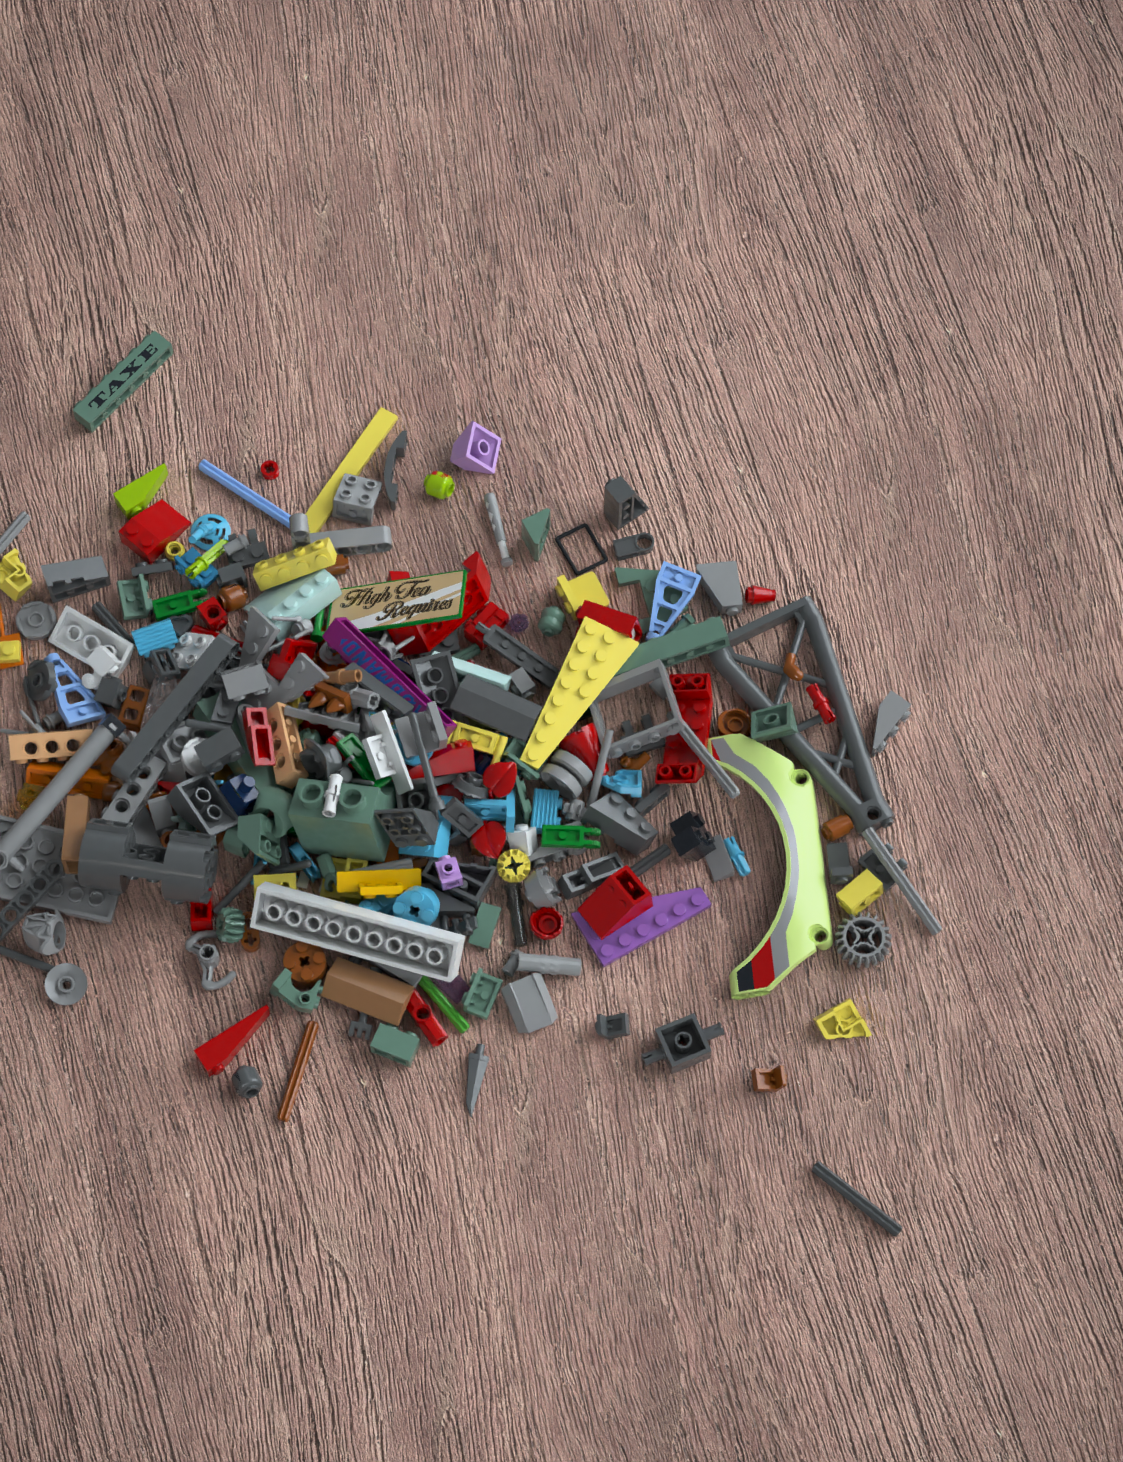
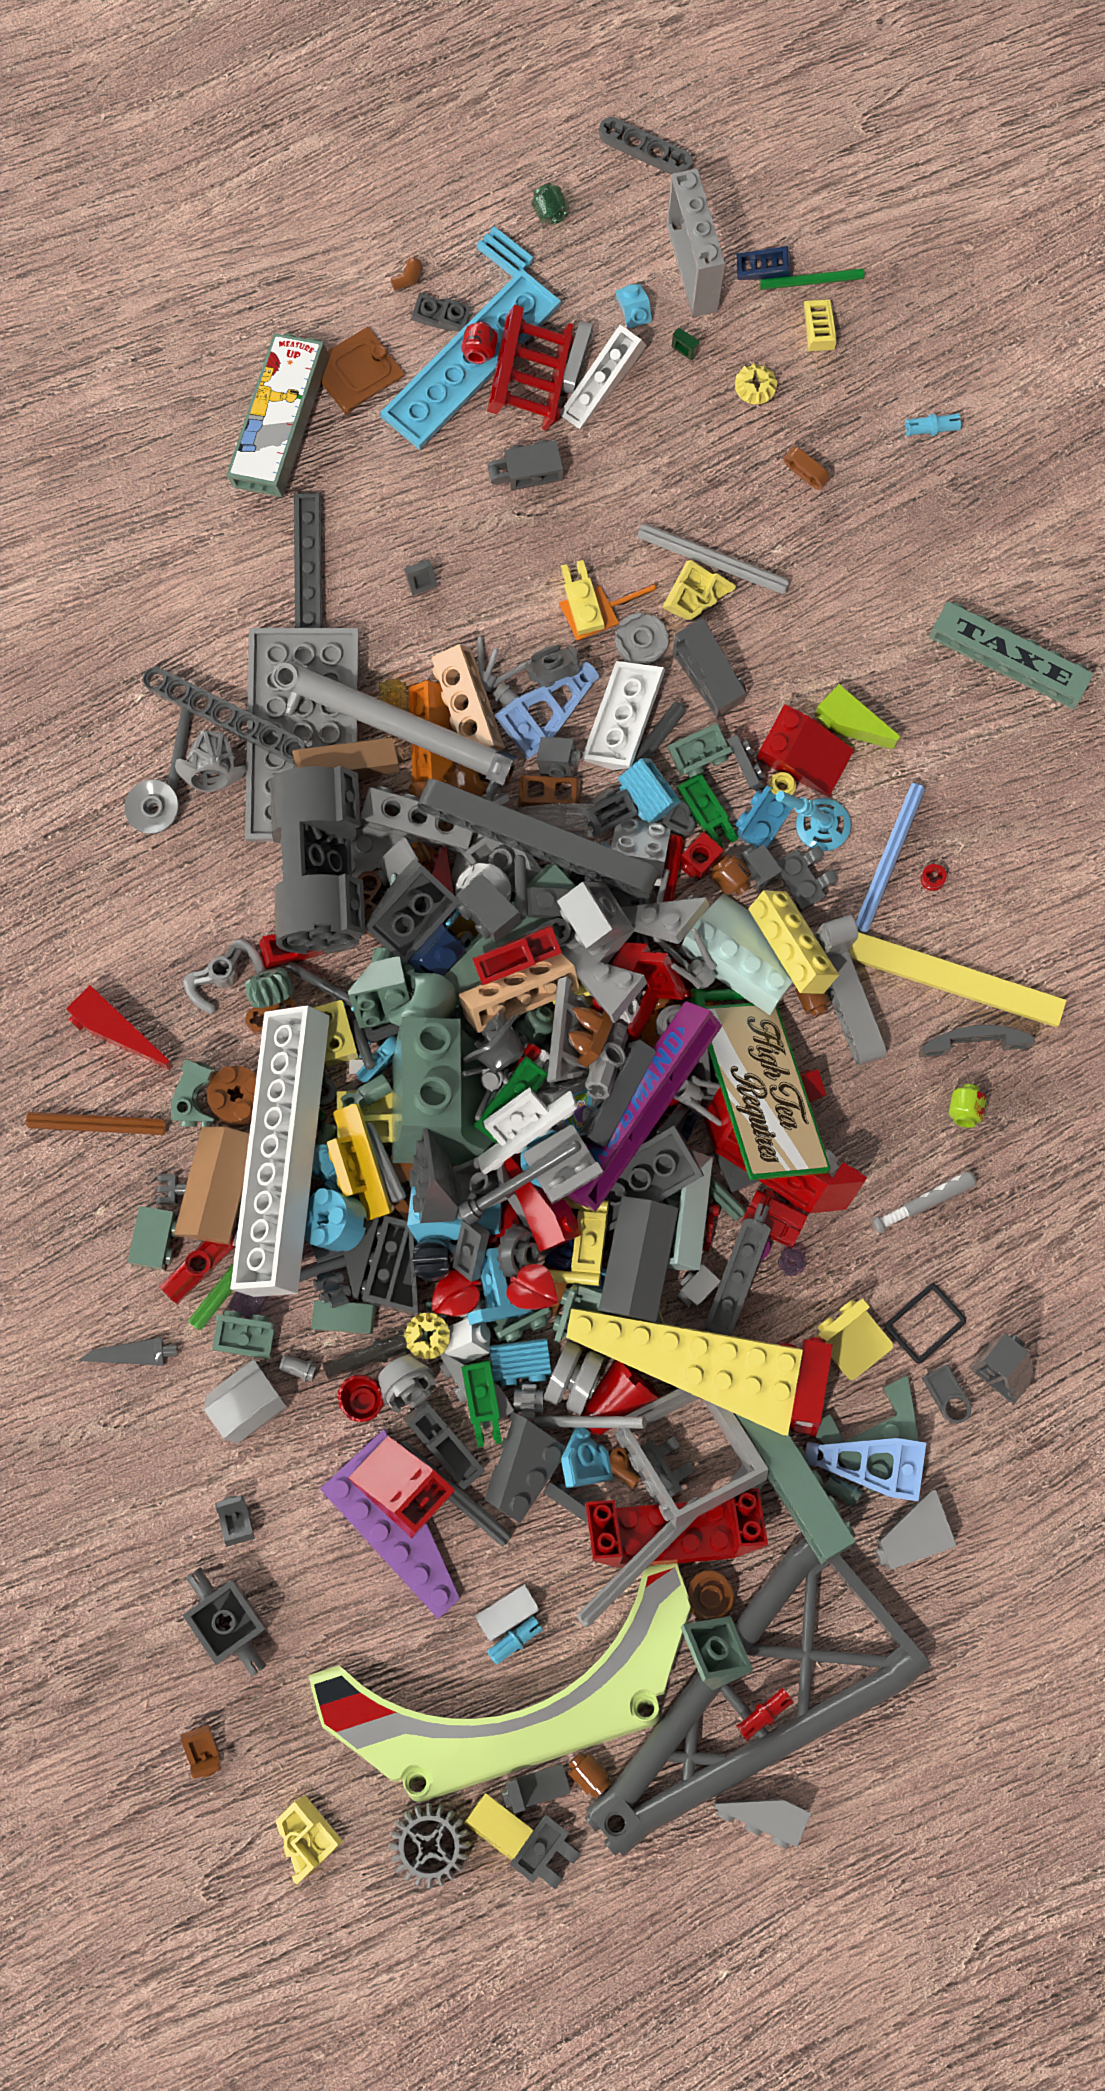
camera: 75 degrees right, 10 degrees up
(104, 665) = (593, 737): white brick -> none
(202, 562) = (776, 828): lime axle -> none
(236, 544) = (805, 859): light grey pin -> none
(247, 1081) = (66, 1062): dark grey head -> none
(332, 795) = (435, 1067): white pin -> none
(343, 676) = (626, 1040): medium nougat pin -> none
(356, 499) = (918, 1000): light grey bracket -> none
(448, 879) = (389, 1261): lavender brick -> none
(461, 847) = (431, 1259): none -> black piece
(476, 449) = (1035, 1144): lavender slope -> none
(535, 531) = (928, 1255): sand green slope -> none
(548, 964) = (301, 1414): light grey axle -> none
(551, 621) = (803, 1306): sand green piece -> none
(691, 837) = (524, 1572): black brick -> none
(759, 595) = (916, 1590): red cone -> none
(791, 669) = (807, 1659): dark orange arm -> none
(857, 1199) = (58, 1910): dark grey axle -> none
(902, 881) = (525, 1885): light grey axle -> none

